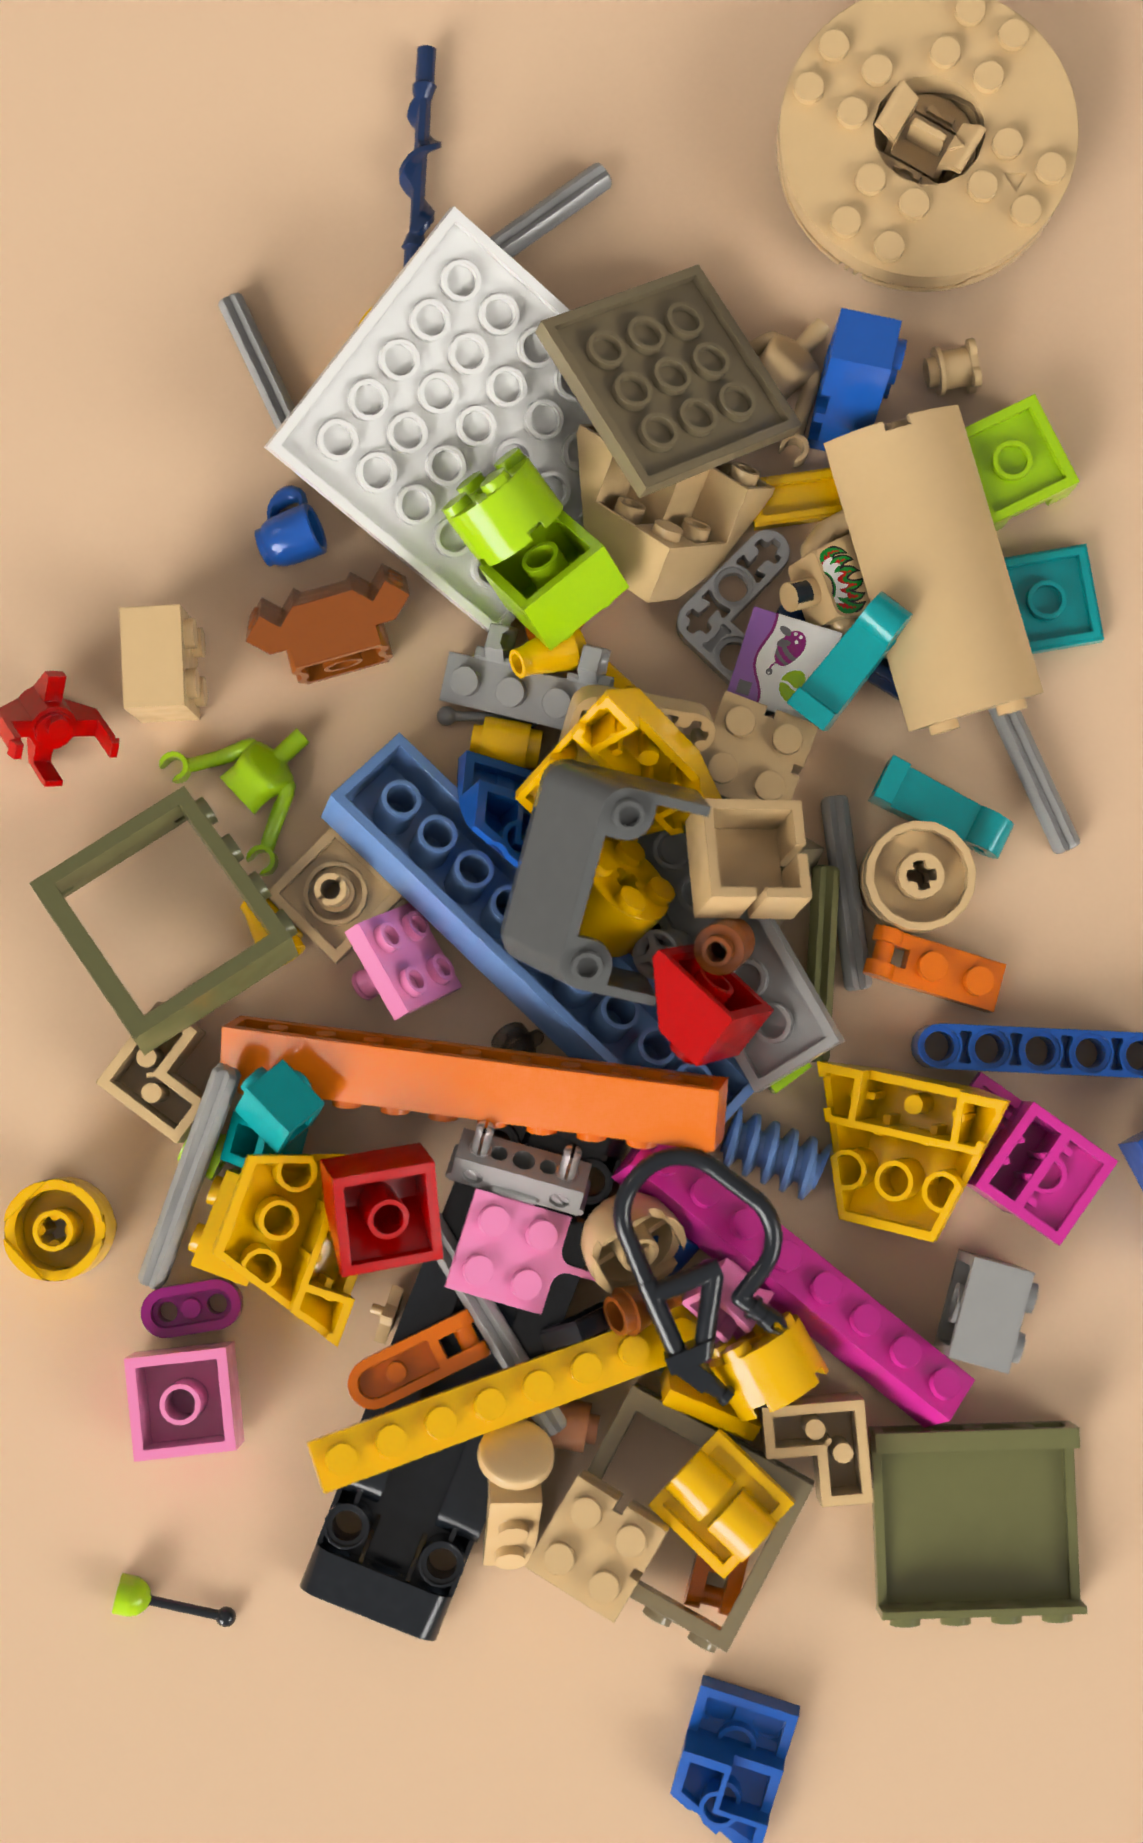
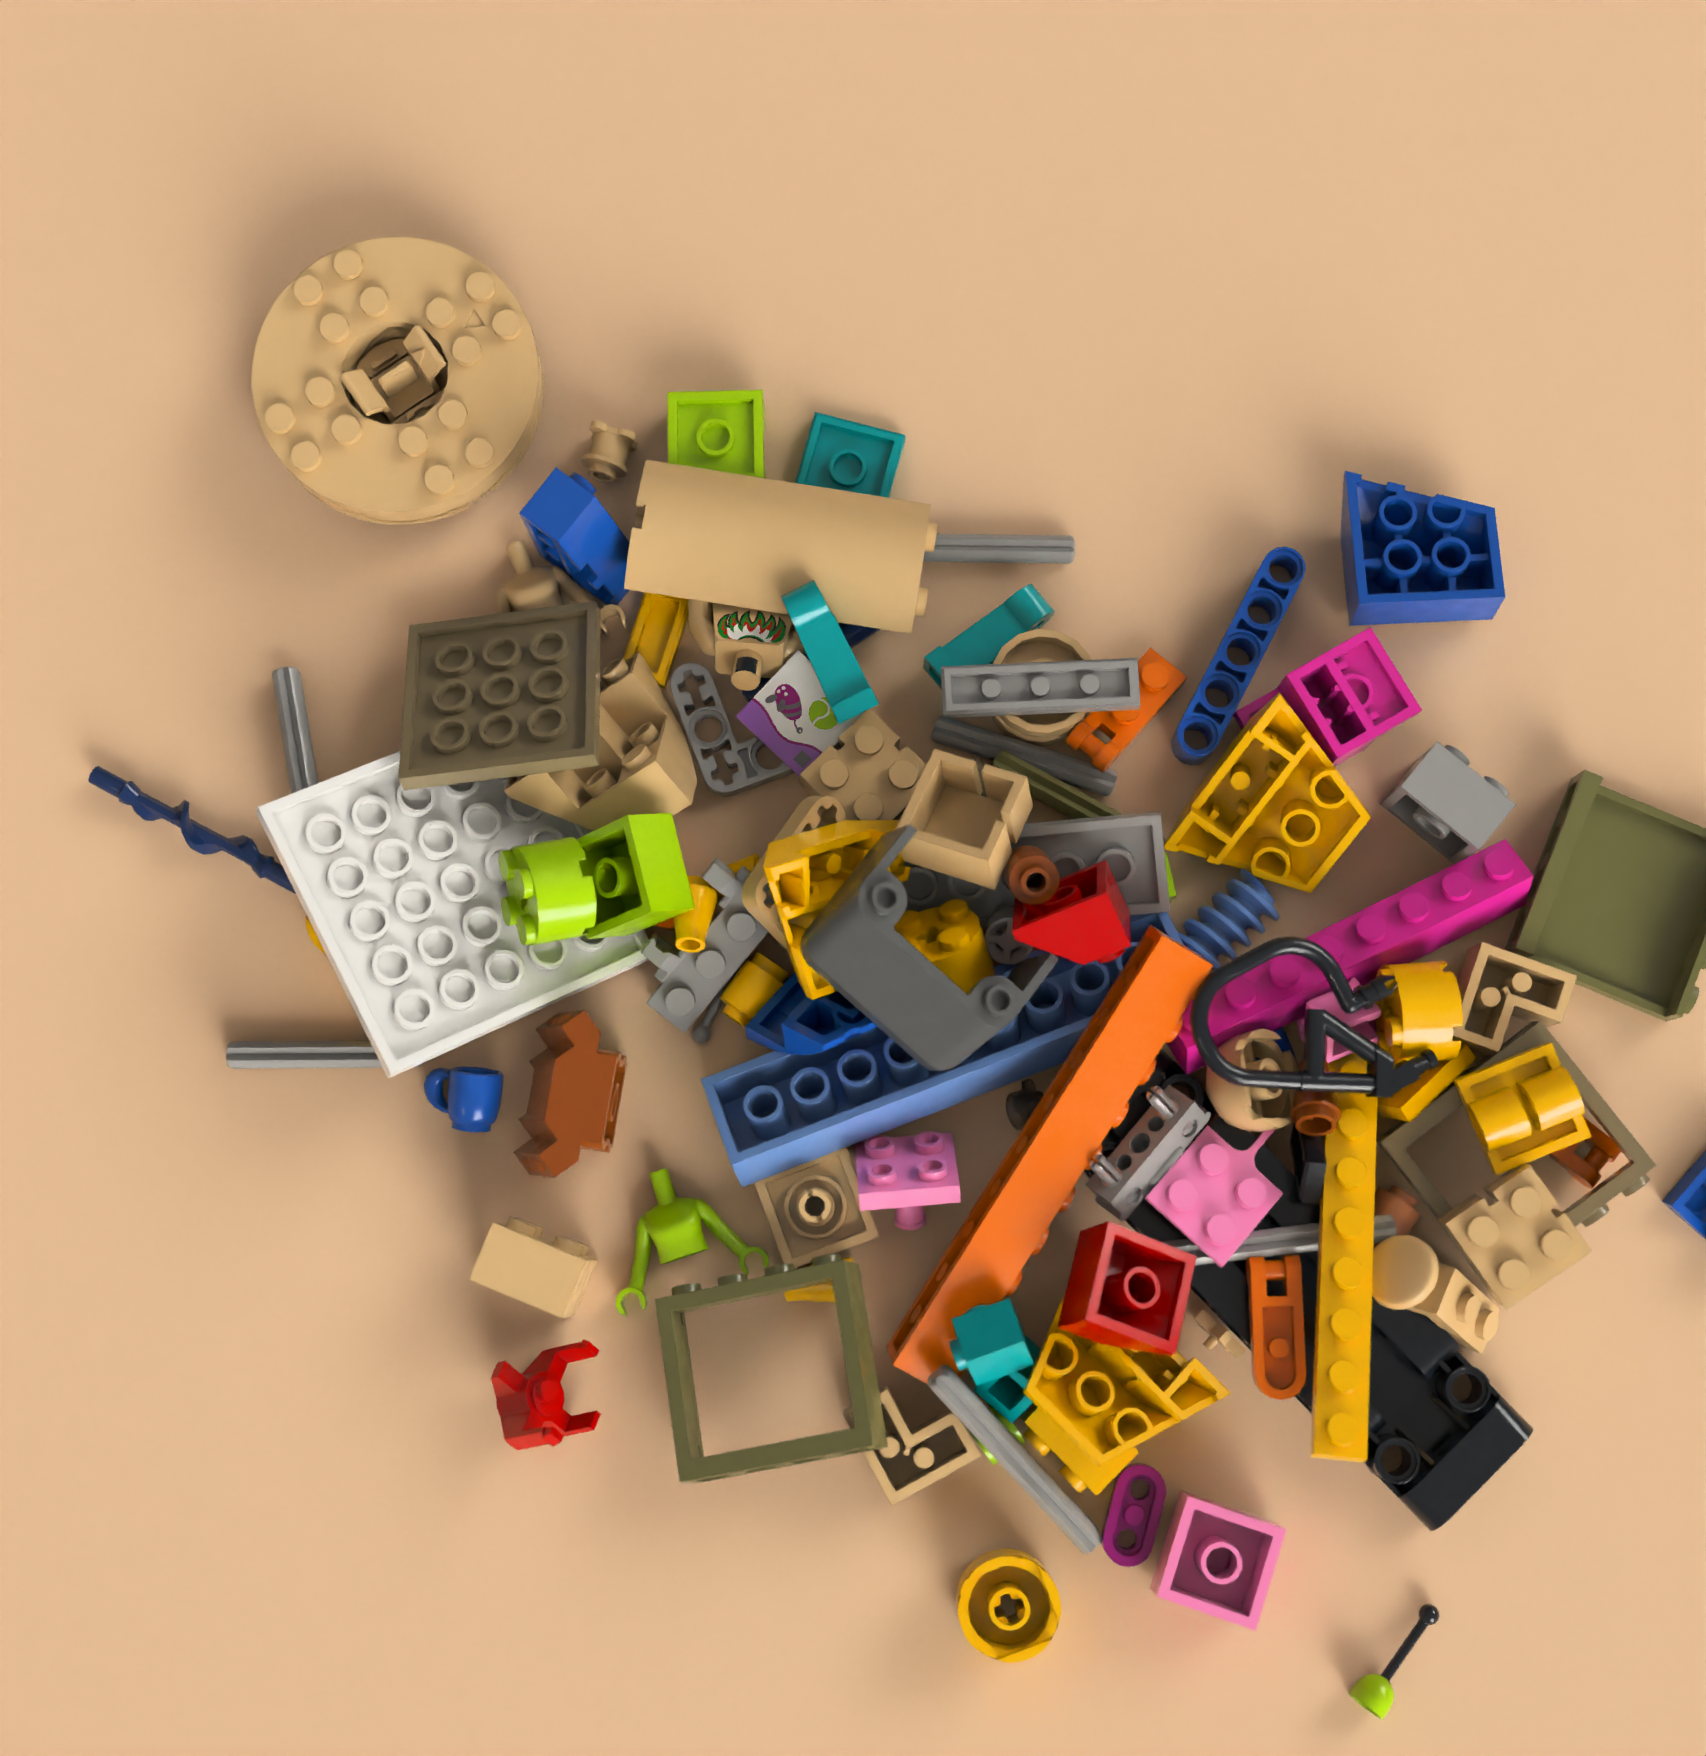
camera: 65 degrees left, 5 degrees down
(911, 875) = (1040, 688): none -> light grey tile

